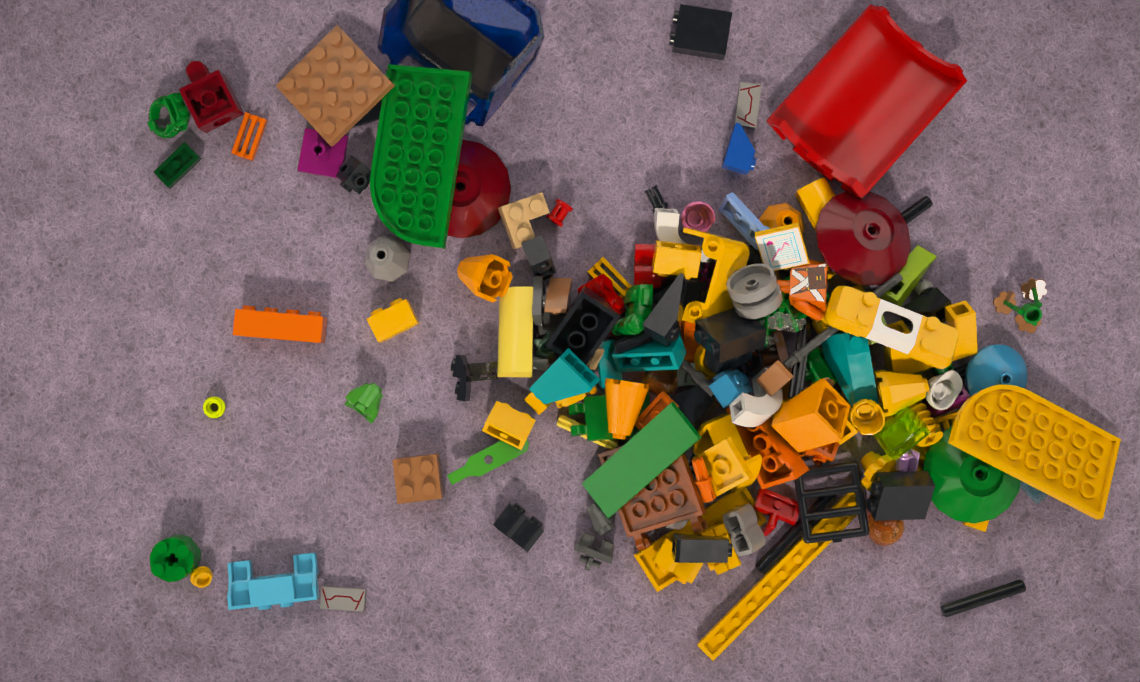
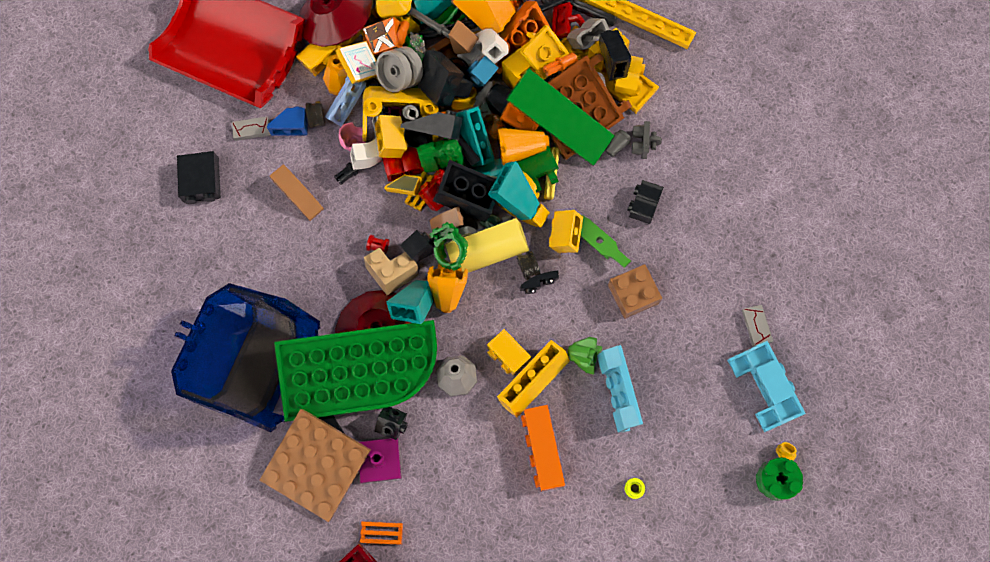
camera: 105 degrees left, 15 degrees down
(305, 424) = (619, 382): none -> medium azure piece
(355, 337) = (533, 378): none -> yellow brick
(472, 231) = (411, 303): none -> teal slope
(536, 294) = (440, 236): none -> green piece
(621, 262) = (405, 185): none -> tile
(648, 138) = (296, 192): none -> medium nougat slope
(696, 289) = (414, 112): none -> light grey pin
(739, 182) = (315, 114): none -> clear smoke wheel

